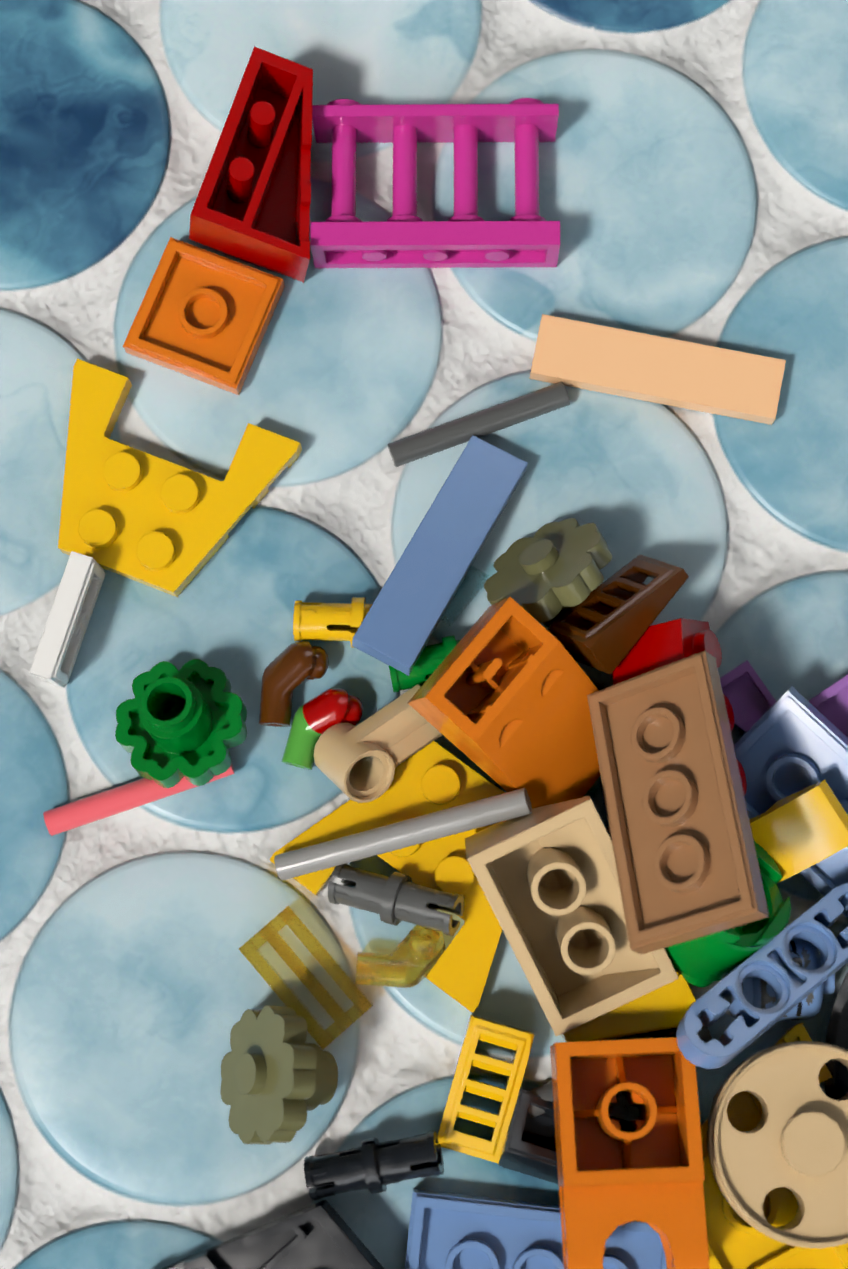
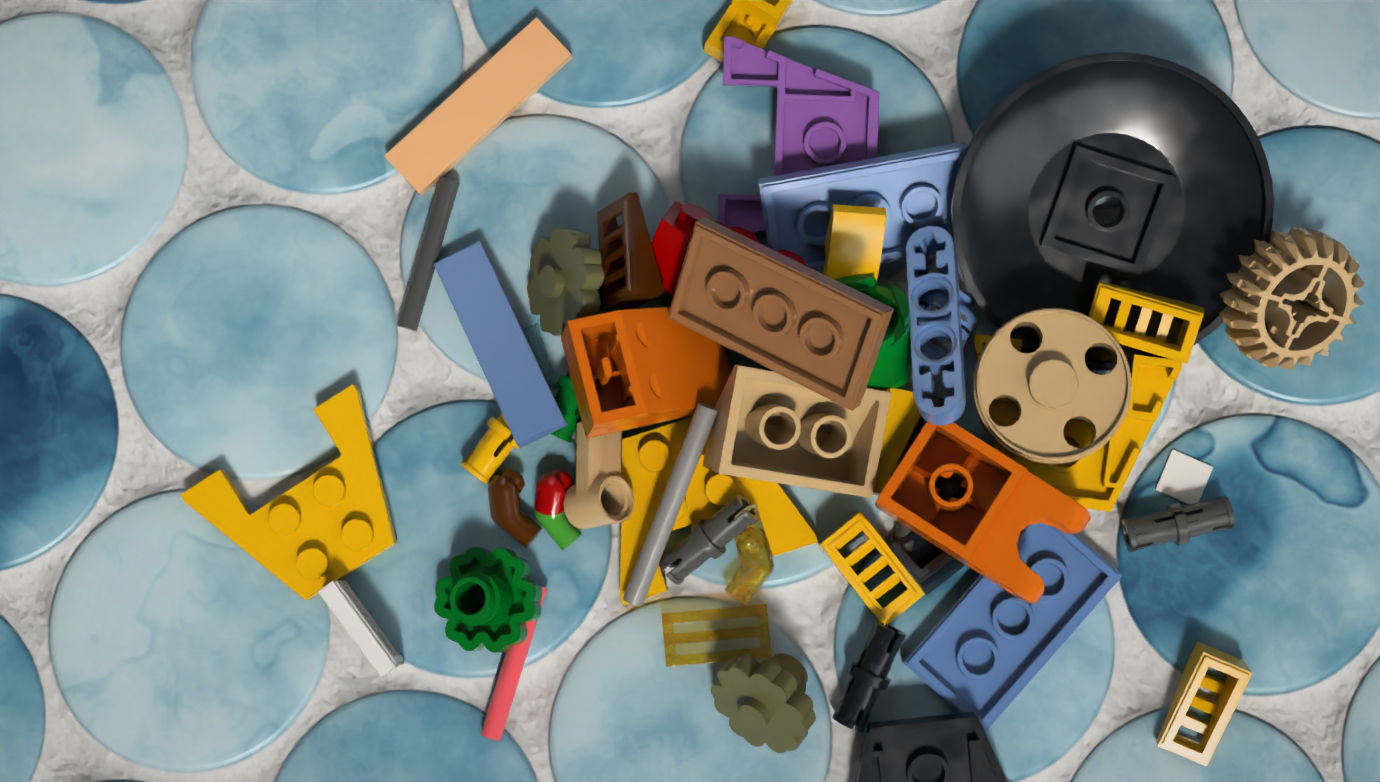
camera: 50 degrees left, 5 degrees up
(204, 315) = (213, 385): orange tile -> none
(259, 175) = (143, 274): red wedge -> none
(465, 237) = (260, 209): dark pink fence -> none

